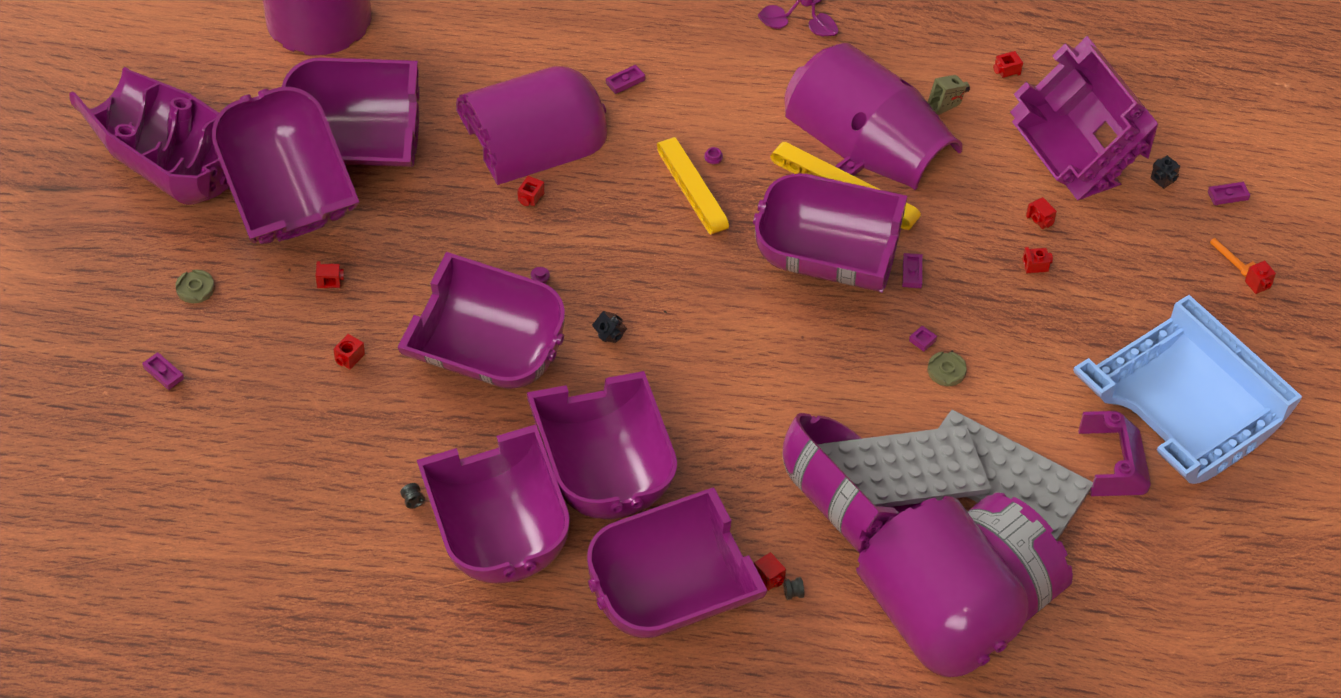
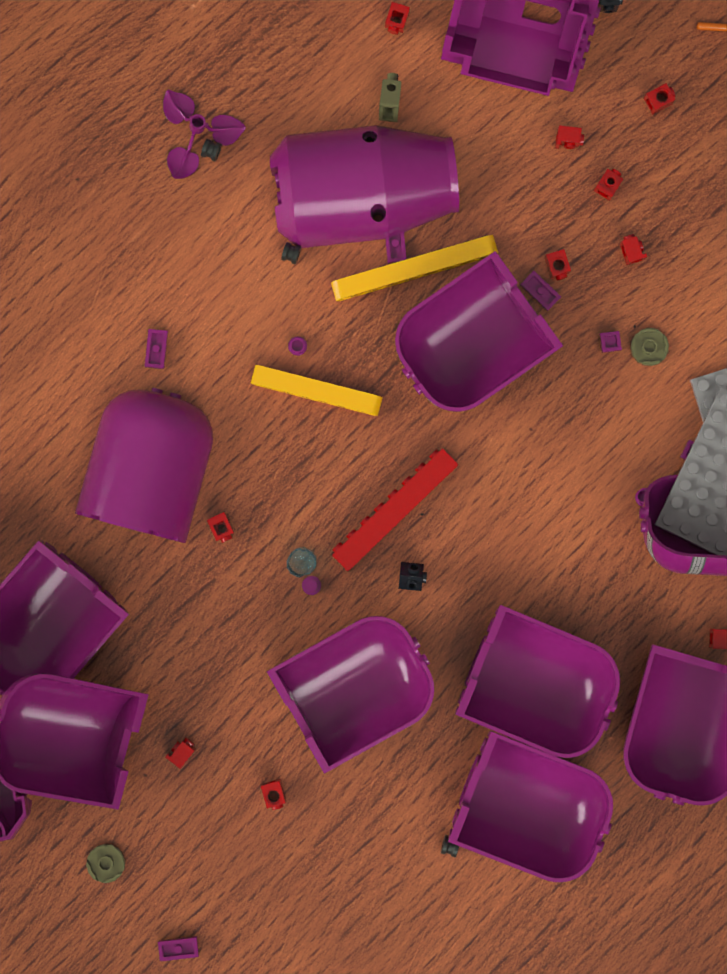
camera: 45 degrees left, 35 degrees up
(552, 253) = (301, 562): none -> clear light blue hair
(650, 287) = (395, 509): none -> red brick
(776, 109) = (291, 253): none -> pearl dark grey wheel
(799, 23) = (211, 150): none -> pearl dark grey wheel
(943, 266) = (558, 256): none -> red brick
(1005, 306) = (632, 249): none -> red brick
(1134, 249) = (656, 105): none -> red brick

